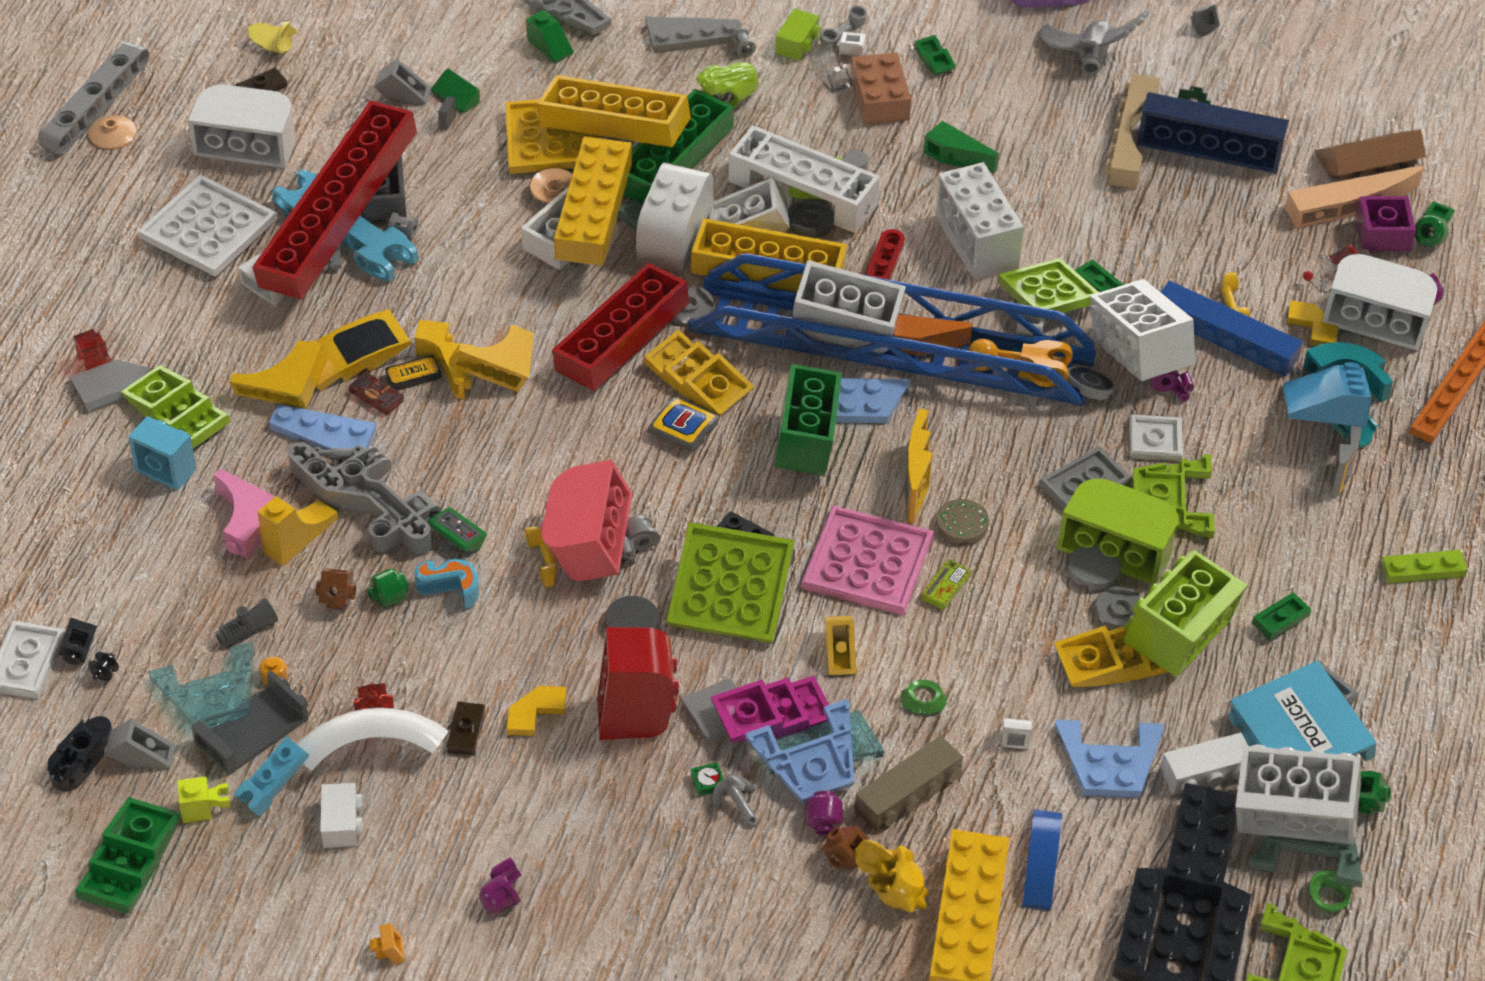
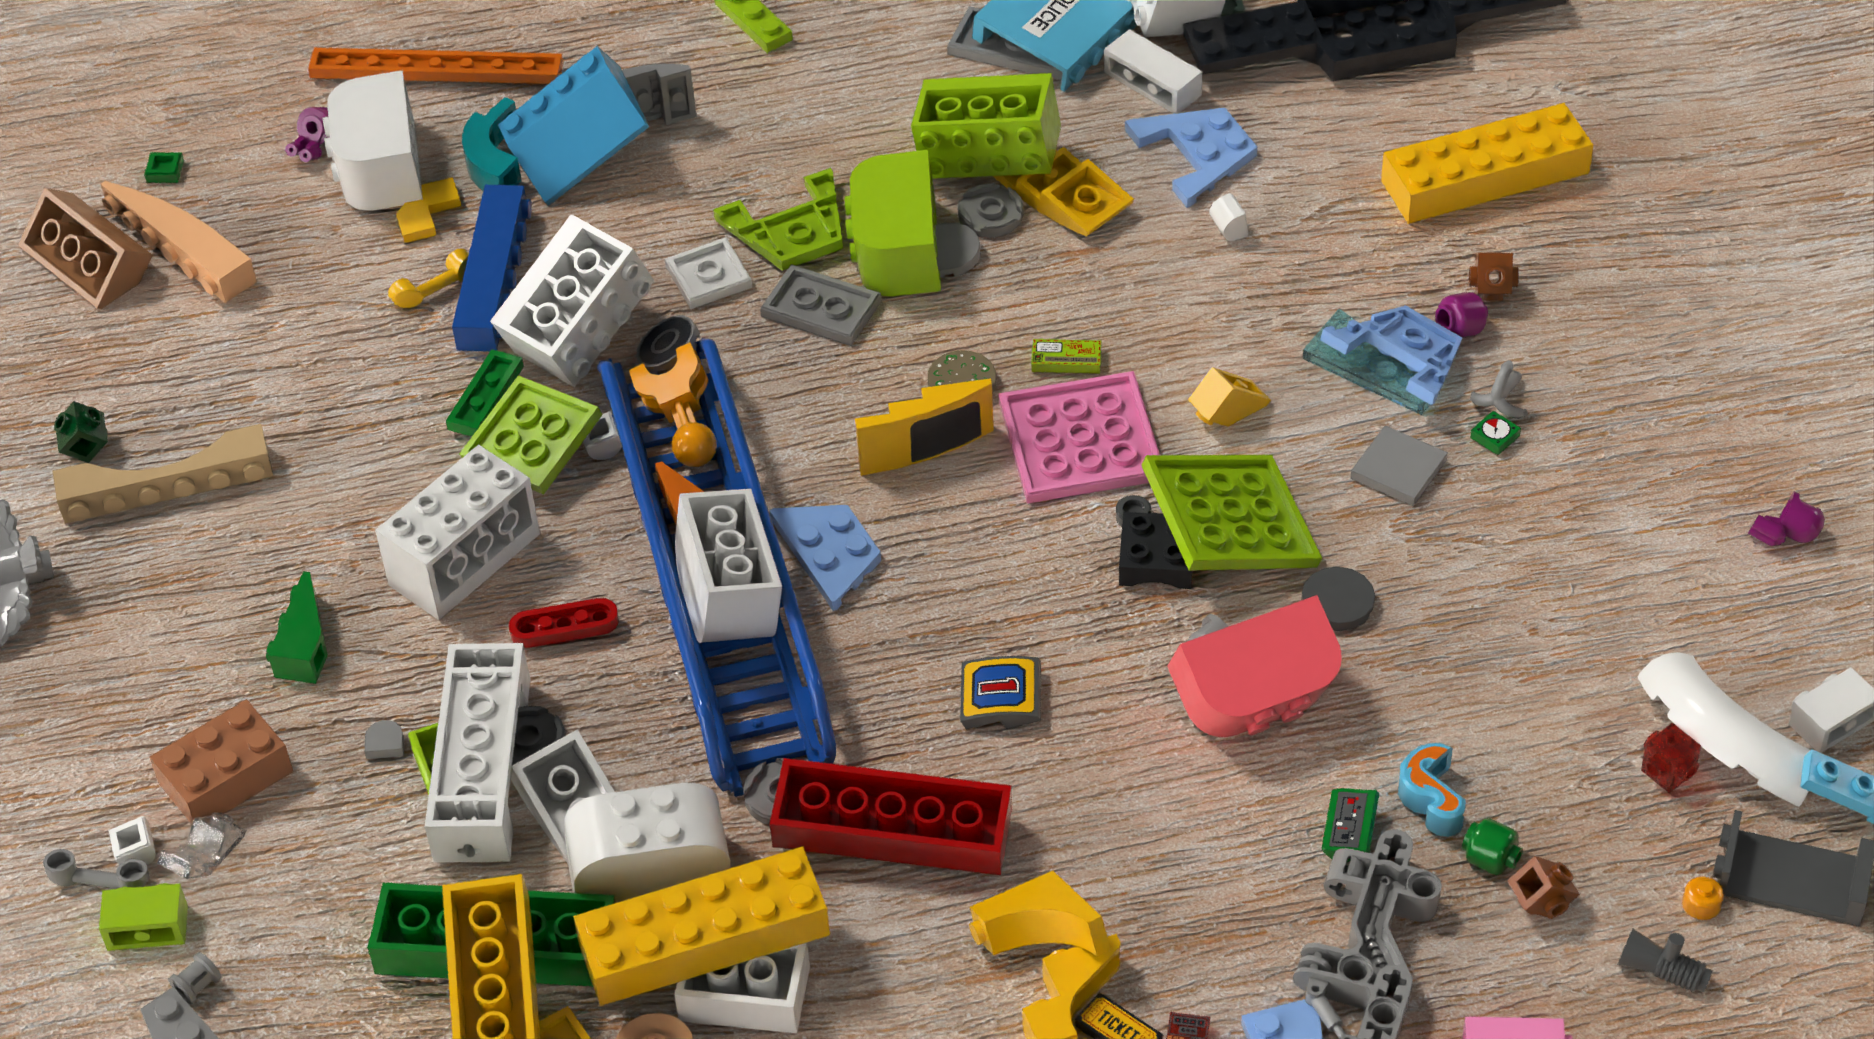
camera: 115 degrees left, 0 degrees up
(214, 697) = (1789, 929): clear light blue wing -> none
(290, 530) = (1500, 987): yellow arch -> none
(466, 728) = (1611, 670): dark brown plate -> none
(541, 700) = (1552, 628): yellow tile -> none
(549, 572) = (1339, 700): yellow bar -> none
(636, 683) = (1468, 497): red brick -> none
(698, 373) = (905, 714): yellow slope -> none
(722, 241) = (651, 707): yellow brick -> none
(738, 79) = (310, 929): lime hair -> none
(780, 704) = (1367, 410): dark pink slope -> none
(807, 420) = (945, 534): green brick -> none
(893, 875) = (1499, 220): yellow head -> none
(908, 783) = (1366, 269): dark tan brick -> none
(911, 703) = (1233, 297): bright green piece -> none
(933, 55) = (108, 745): green slope -> none
(1042, 860) = (1356, 143): blue slope -> none
(1212, 132) = (138, 379): dark blue brick -> none
(1281, 616) = (899, 84): green plate -> none
(1329, 266) = (321, 205): clear piece -> none
(1385, 223) = (224, 187): magenta brick -> none
(1423, 231) = (212, 150): green head -> none

